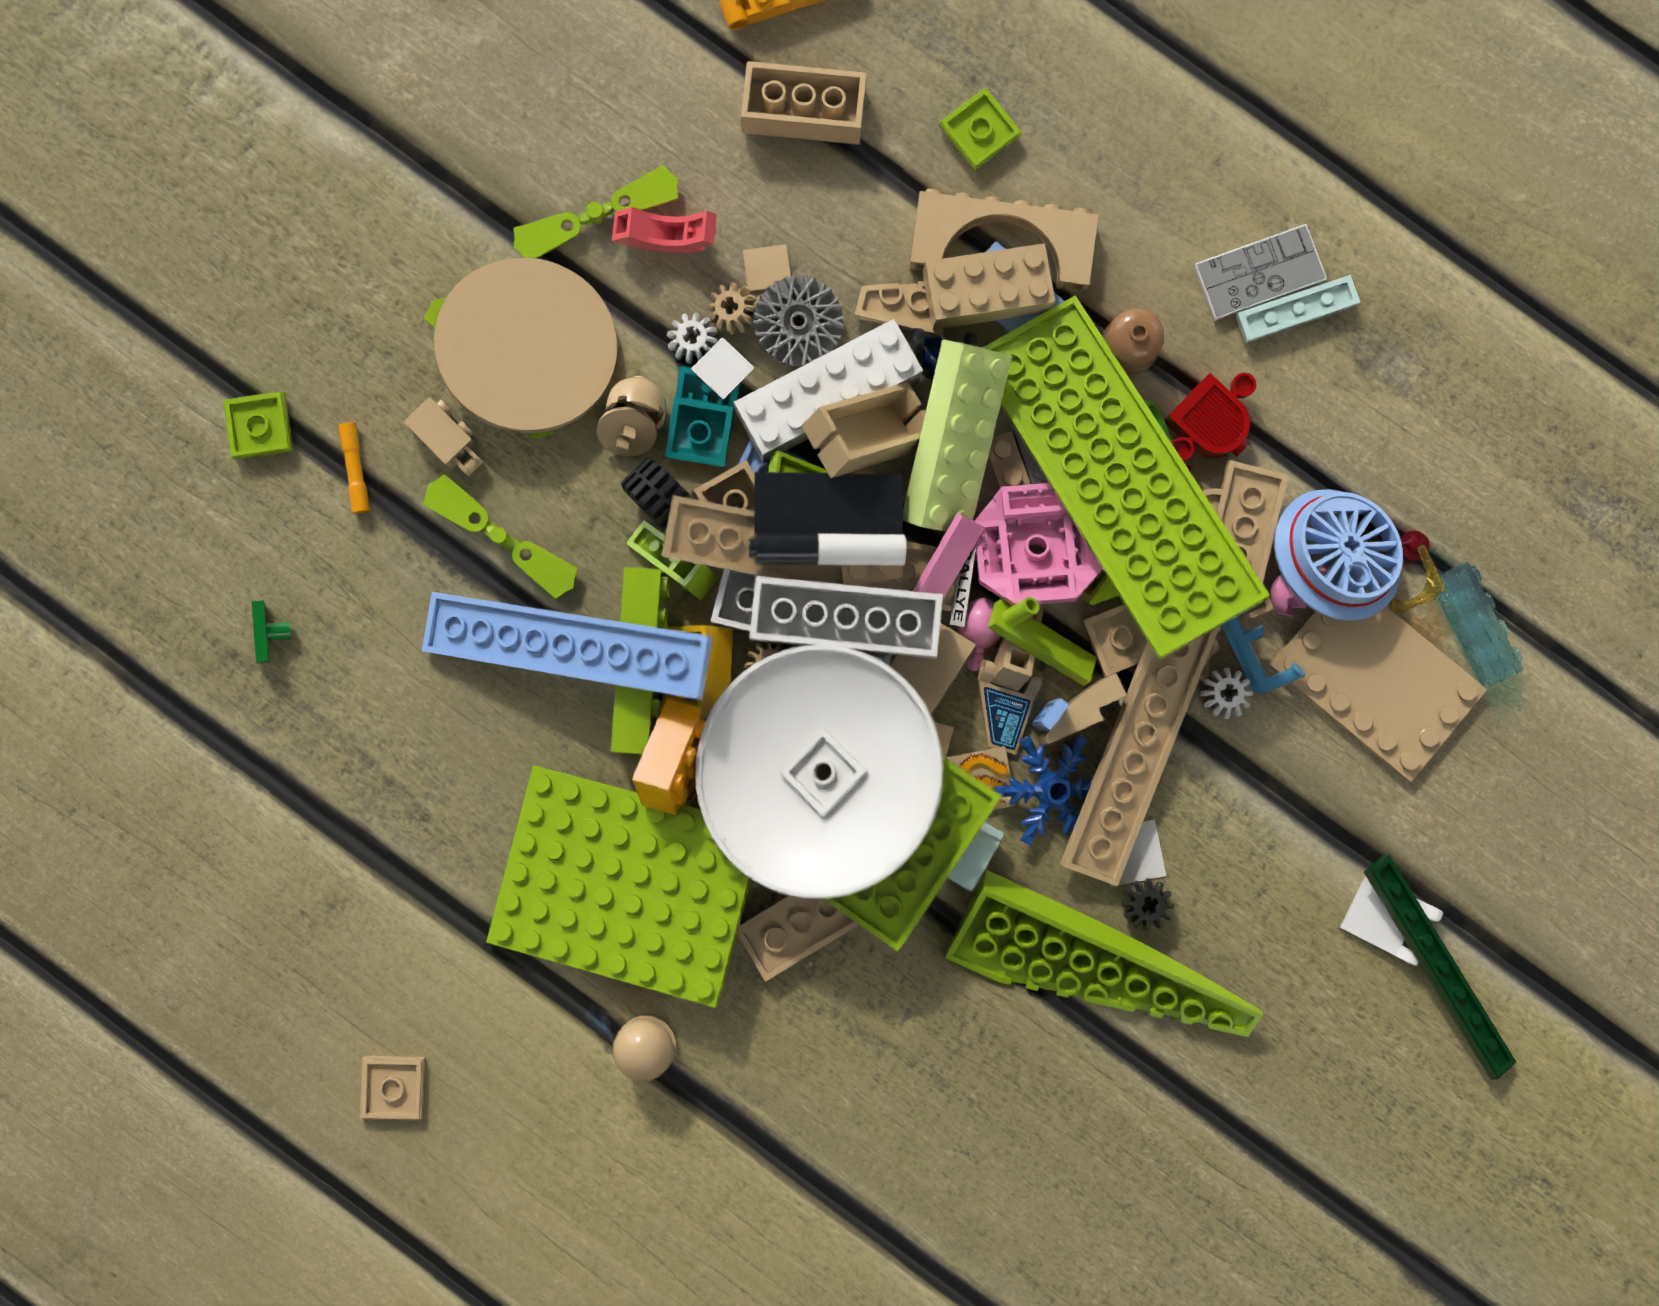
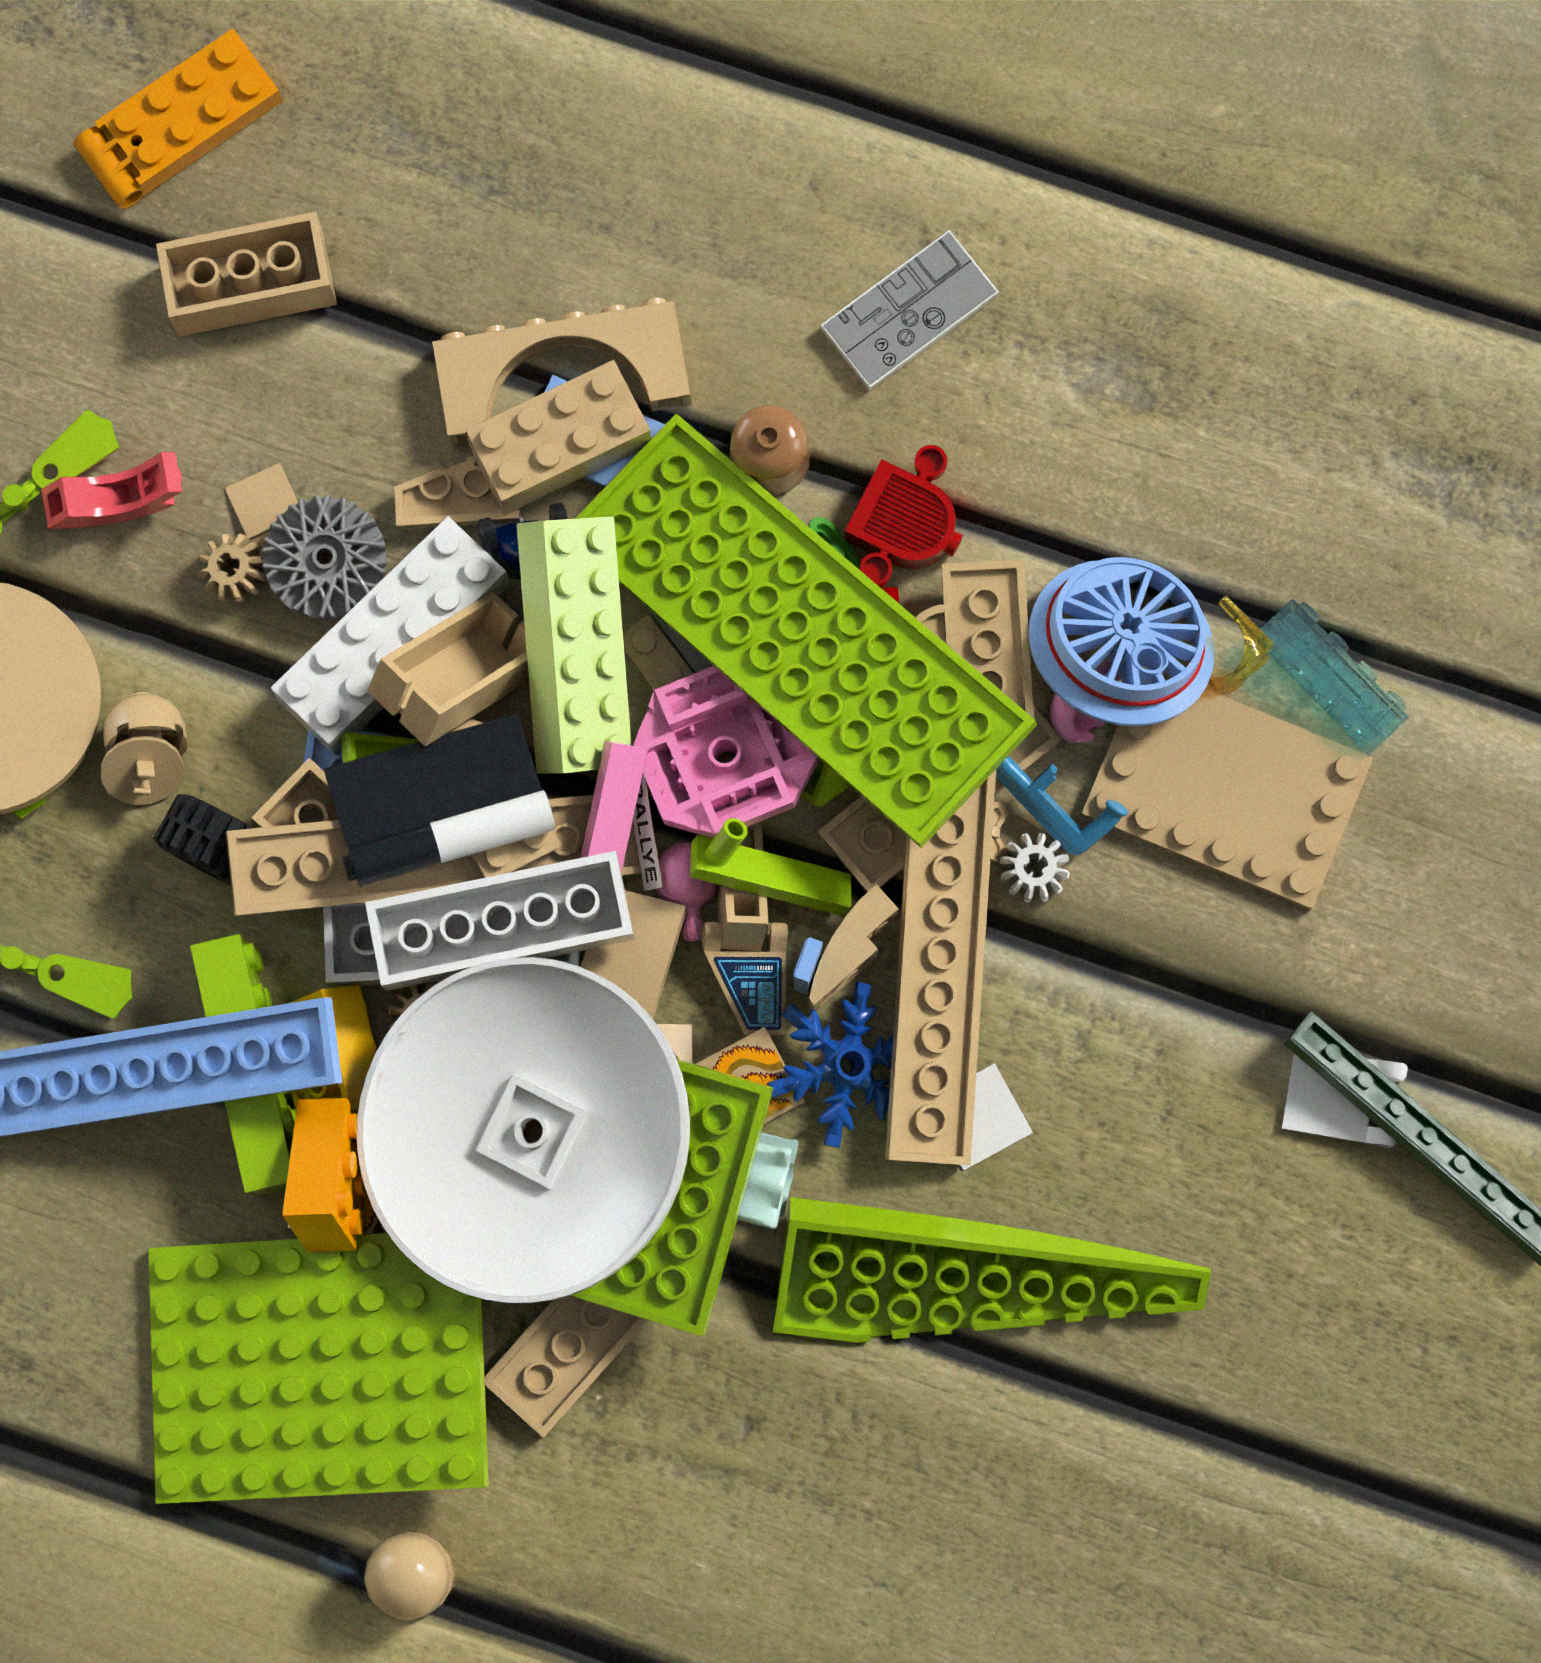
camera: 15 degrees left, 5 degrees down
(681, 337) = (179, 630): white gear -> none
(691, 576) = (281, 931): lime slope -> none
(700, 421) = (236, 719): teal slope -> none
(722, 368) = (243, 648): white sticker -> none
(980, 129) = (488, 237): lime plate -> none
(1137, 901) = (1003, 1175): pearl dark grey gear -> none
(1297, 309) = (972, 342): light aqua plate -> none
(1410, 544) = (1210, 597): dark red tile -> none

